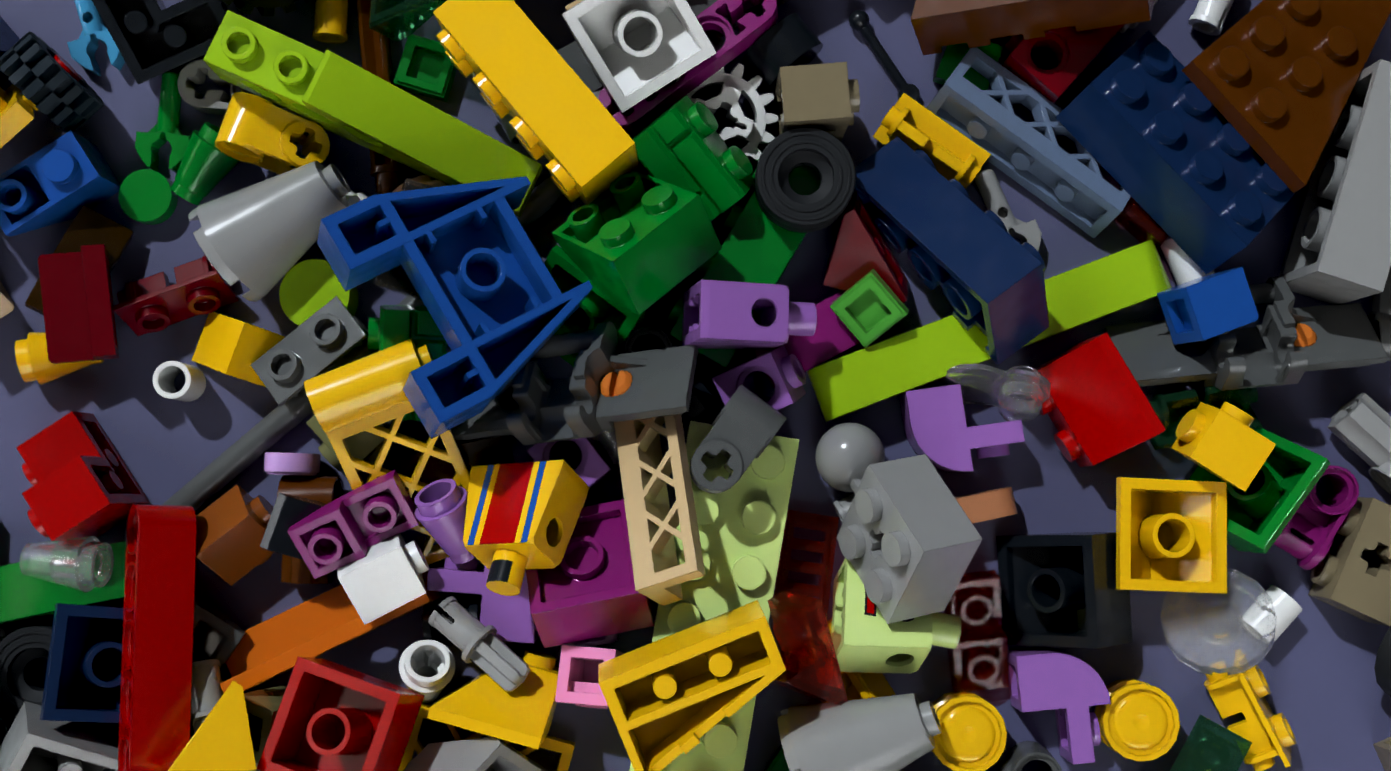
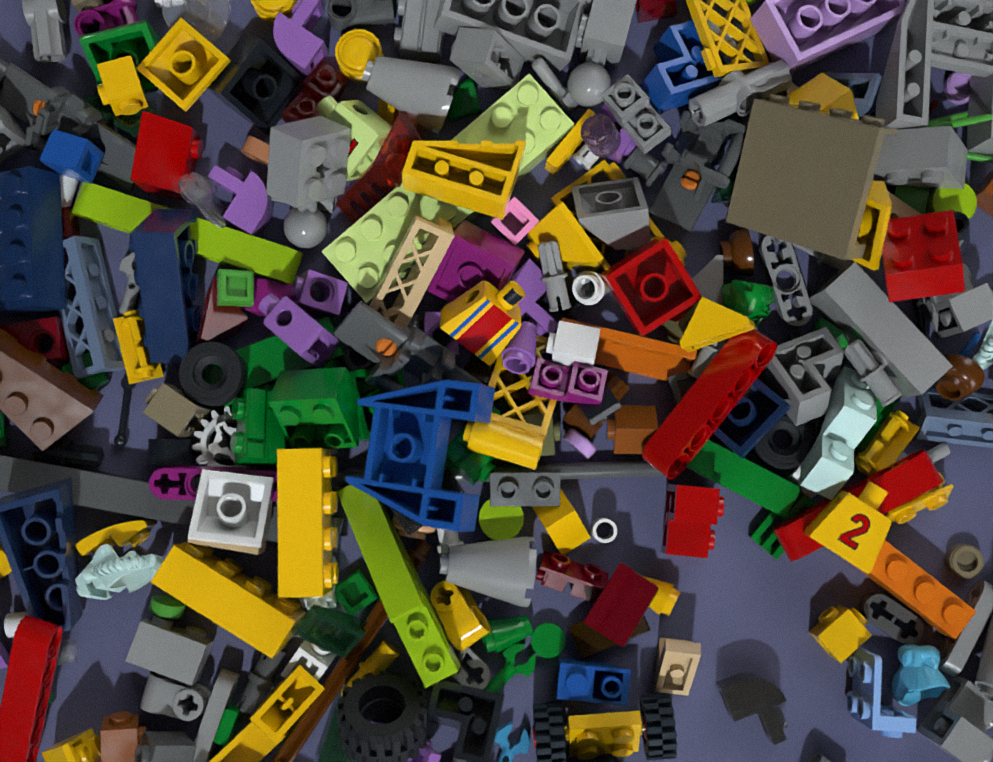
camera: 140 degrees left, 0 degrees up
(72, 563) = (720, 474): clear cone -> none
(739, 434) = (346, 272): dark grey piece -> none

